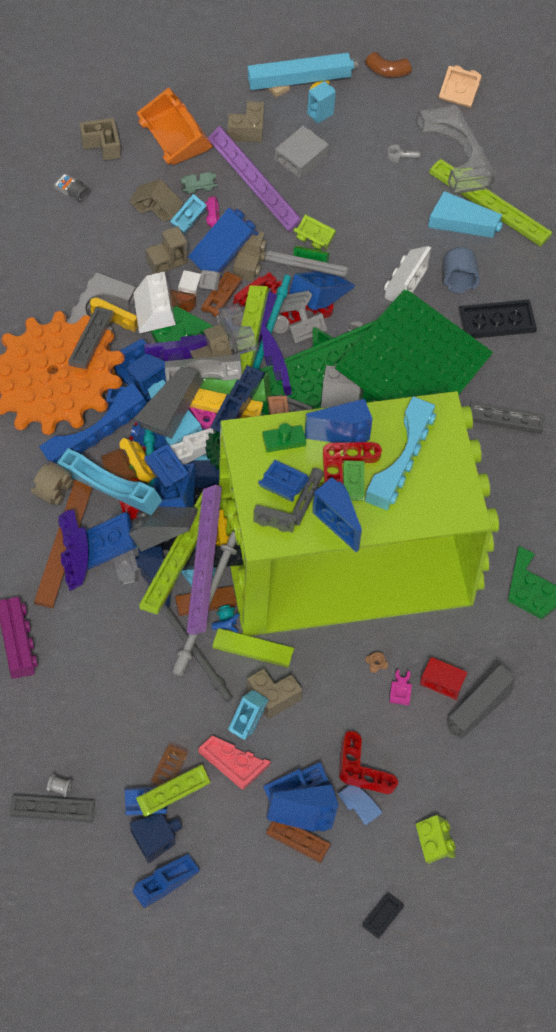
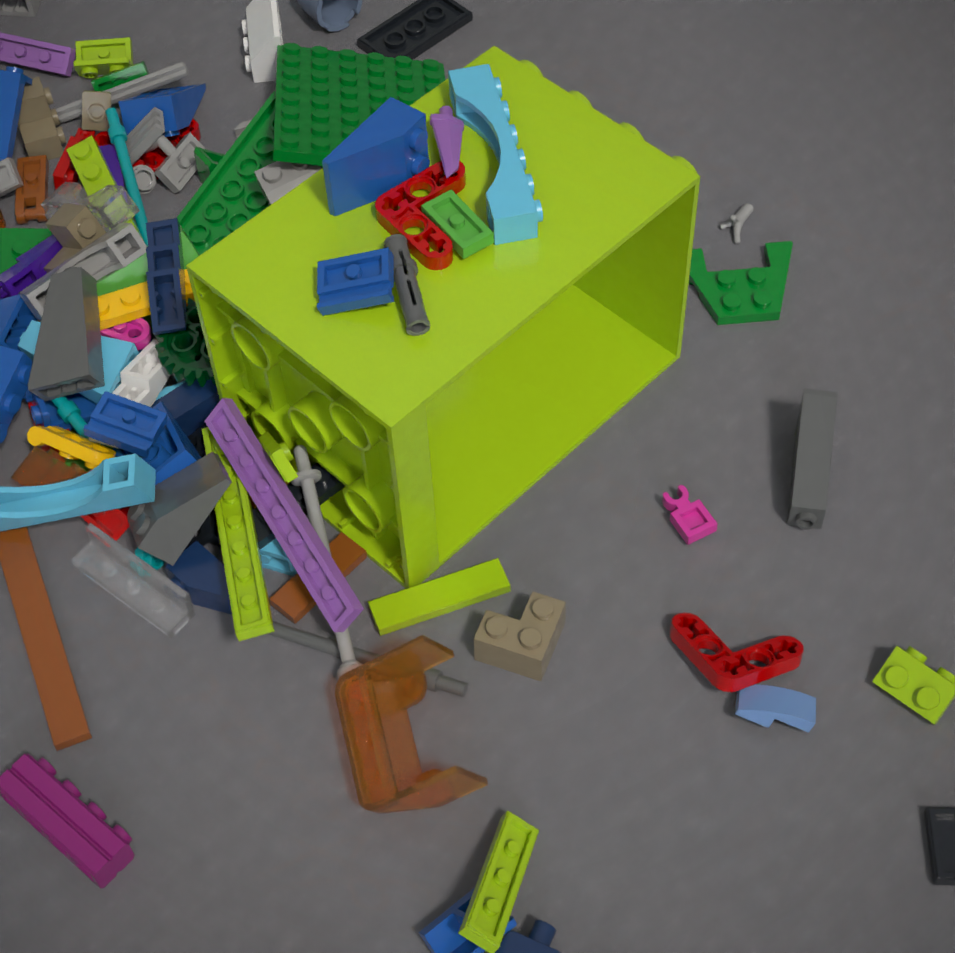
camera: 30 degrees left, 5 degrees down
(76, 554) = (73, 634): dark purple slope -> none
(109, 540) = (107, 586): blue tile -> none
(170, 750) = (452, 820): clear orange slope -> none
(174, 694) = (380, 736): none -> clear orange windscreen
(221, 531) = (279, 455): none -> lime plate
(225, 612) = (362, 573): teal plate -> none
(227, 624) = (377, 586): blue bar -> none
(235, 764) = (552, 776): coral wing -> none
(248, 714) = (519, 689): medium azure brick -> none
(274, 357) = (163, 205): dark purple slope -> none
(274, 518) = (386, 339): dark grey plate -> none
(282, 267) = (93, 110): none -> dark tan bracket
(284, 438) = (305, 231): green tile -> none
(299, 840) = (733, 821): dark orange tile -> none
(304, 808) = (718, 765): blue slope -> none
(310, 777) = (666, 742): blue slope -> none
(336, 511) = (483, 270): blue slope -> none
(377, 656) = (628, 496): medium nougat plate -> none
(387, 431) = (448, 138): none -> medium lavender bar
(443, 678) = (734, 464): red panel -> none

